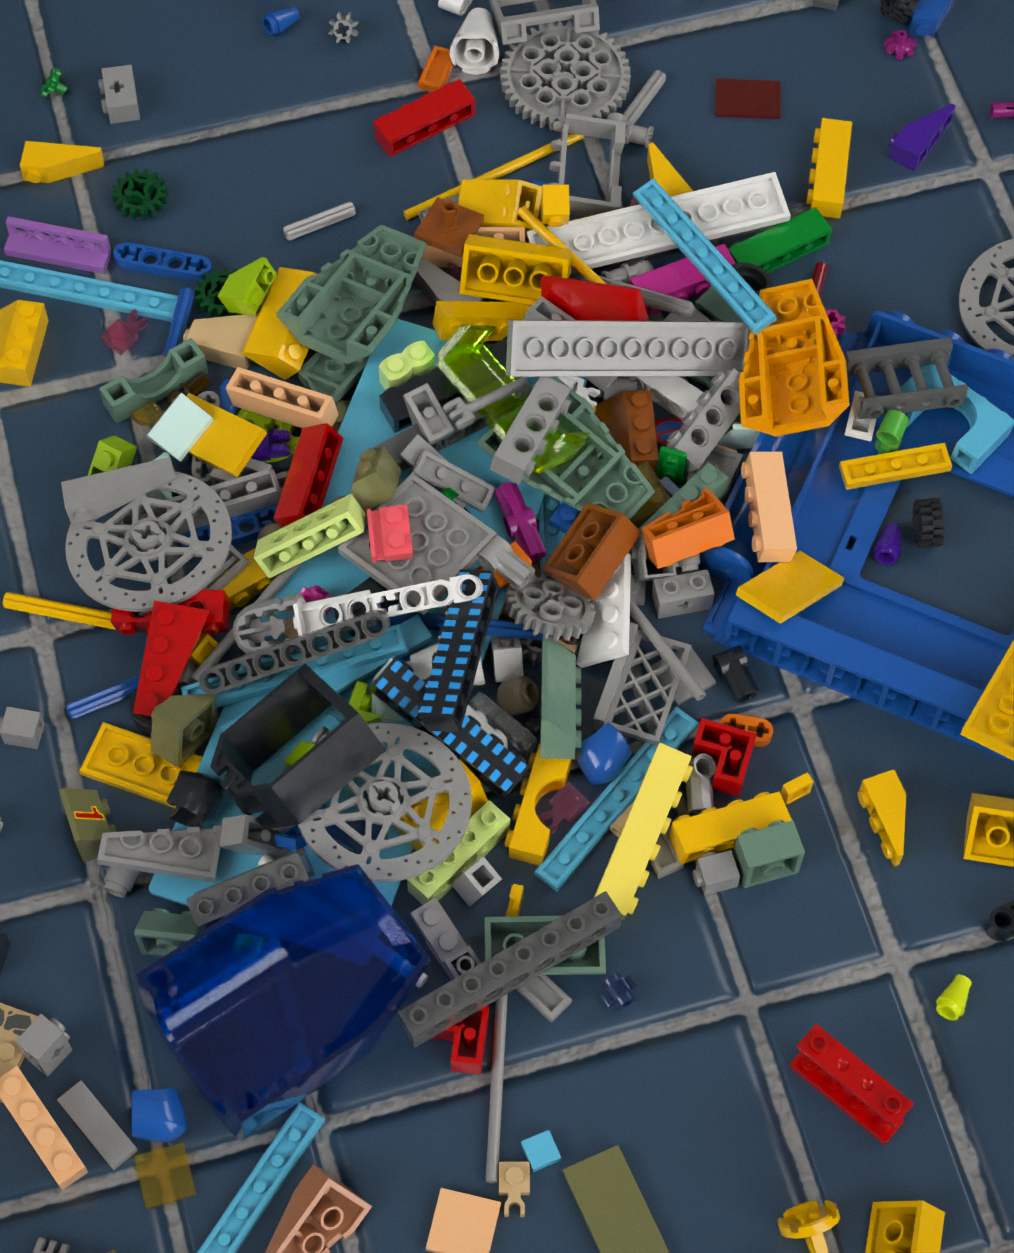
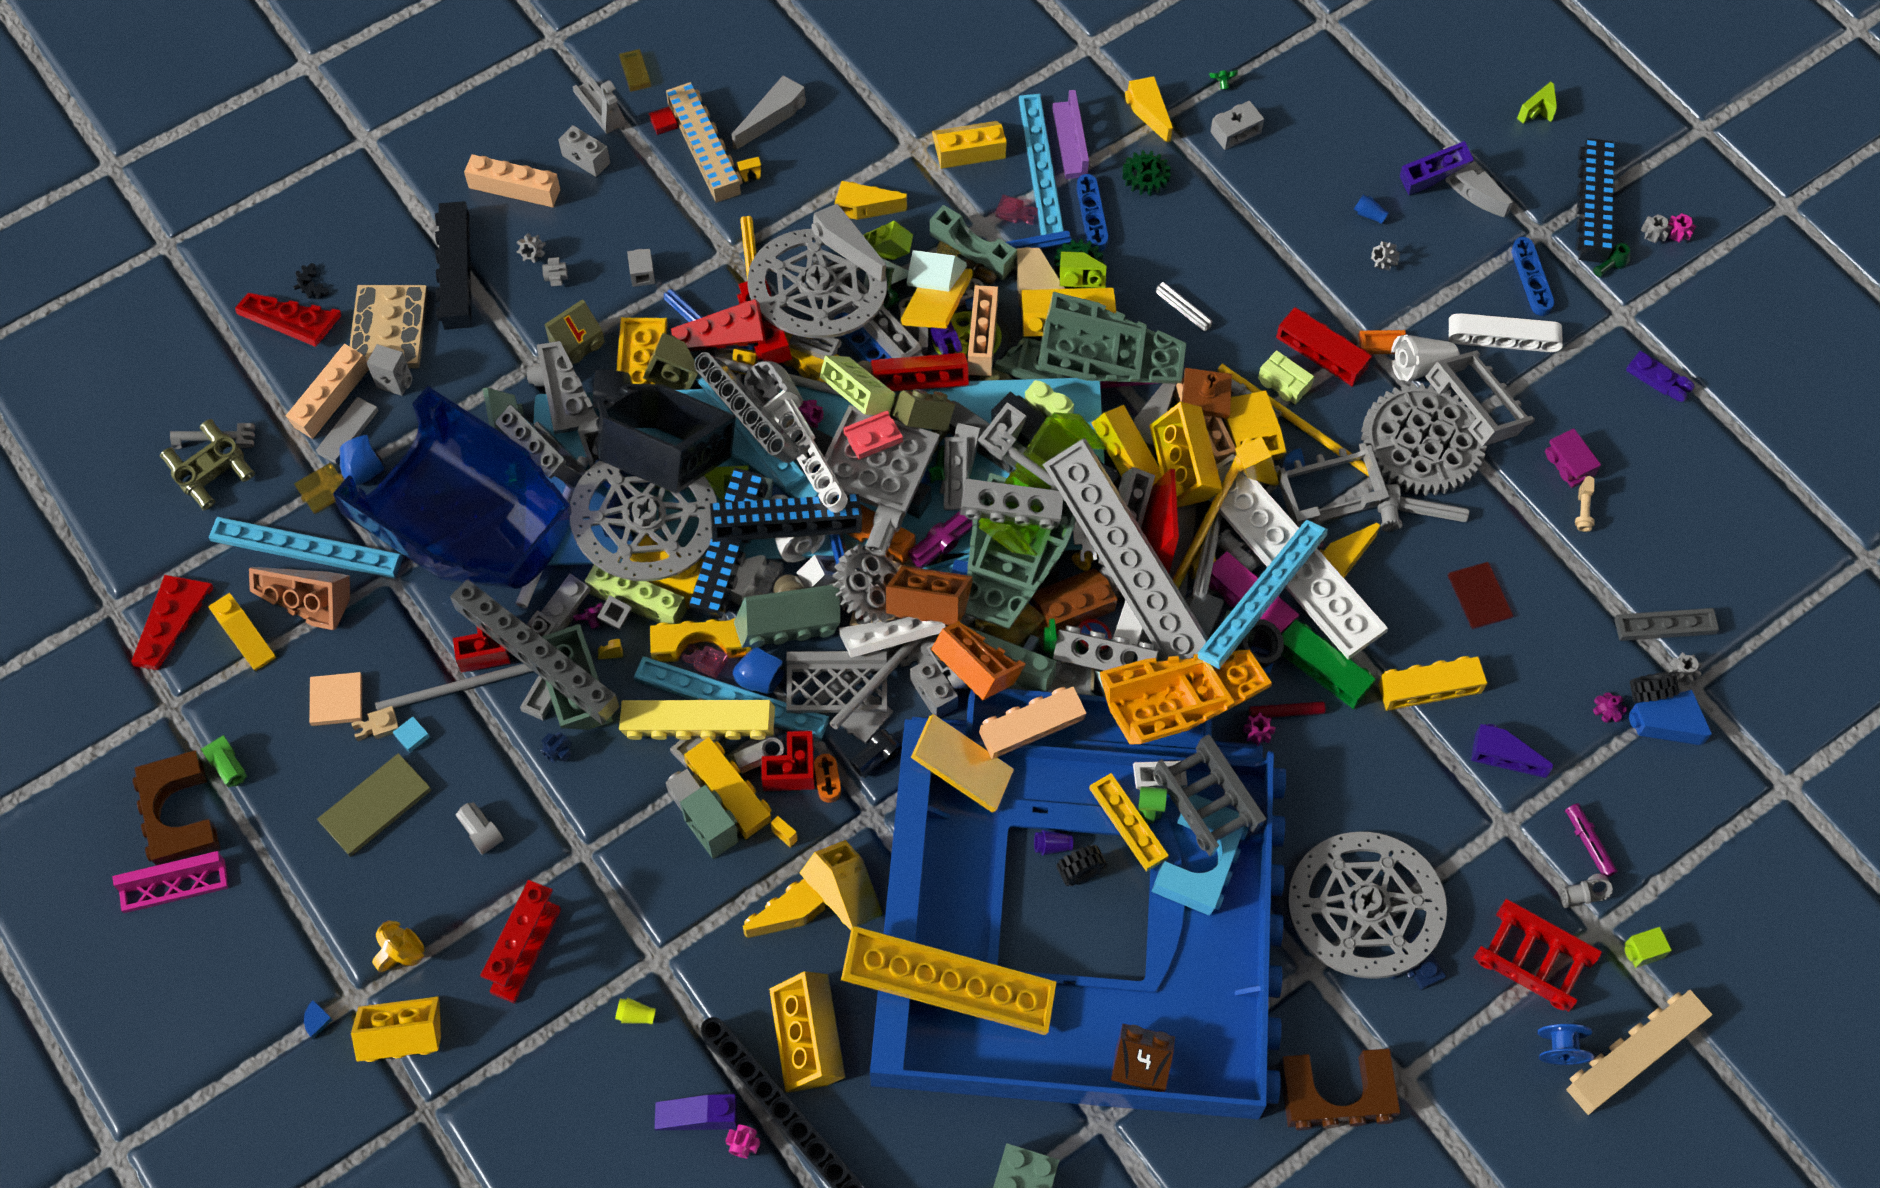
camera: 70 degrees right, 0 degrees up
(42, 473) = (865, 201): none -> yellow slope
(446, 162) = (1285, 377): none -> yellowish green brick
(461, 911) = (590, 615): none -> magenta plant
(696, 1099) = (481, 832): none -> light grey piece
(878, 746) = (843, 883): none -> yellow slope

